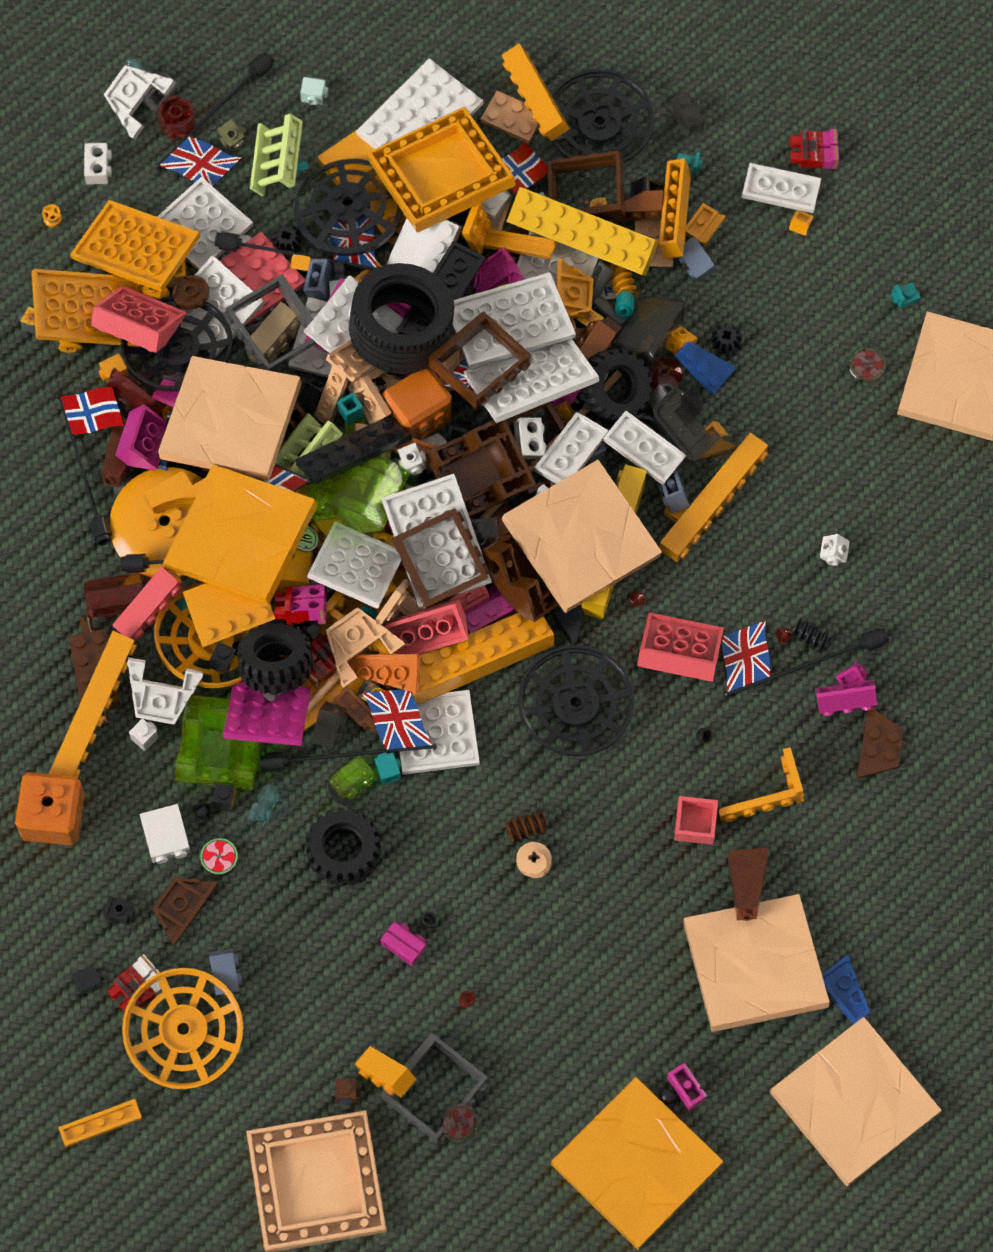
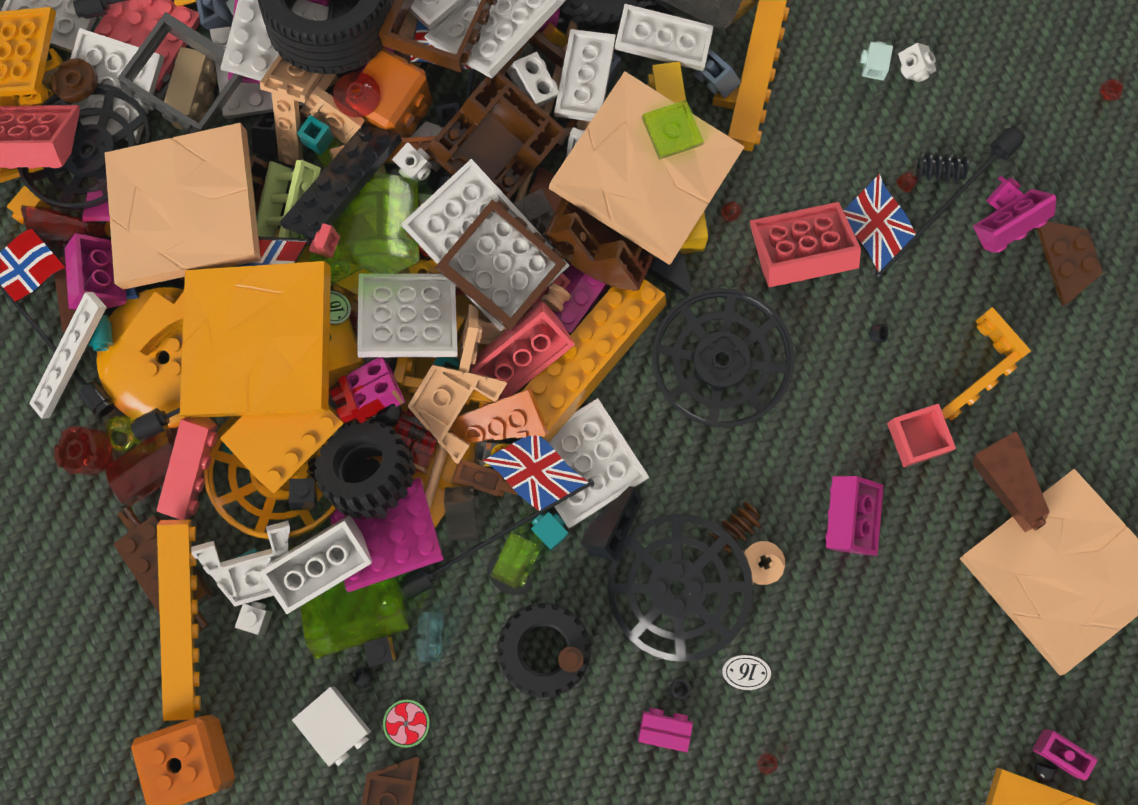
camera: 20 degrees left, 10 degrees up
(76, 562) = (83, 451): none -> clear red brick
(97, 489) = (67, 354): none -> white plate
(111, 556) = (123, 425): none -> clear neon green piece
(127, 483) = (102, 336): none -> teal brick
(210, 708) = (317, 564): none -> white slope
(321, 486) = (325, 241): none -> coral bracket
(359, 855) = (570, 659): none -> reddish brown plate
(393, 400) = (360, 103): none -> clear red dish
(436, 783) = (610, 528): none -> black slope
(469, 854) = (695, 584): none -> black dish
(471, 602) = (556, 297): none -> light nougat wheel
(484, 933) = (746, 672): none -> white sticker
(612, 516) = (672, 129): none -> clear neon green tile
(619, 856) = (854, 515): none -> dark pink slope
(805, 534) = (876, 60): none -> light aqua brick
(977, 631) = (1113, 84): none -> clear red plate

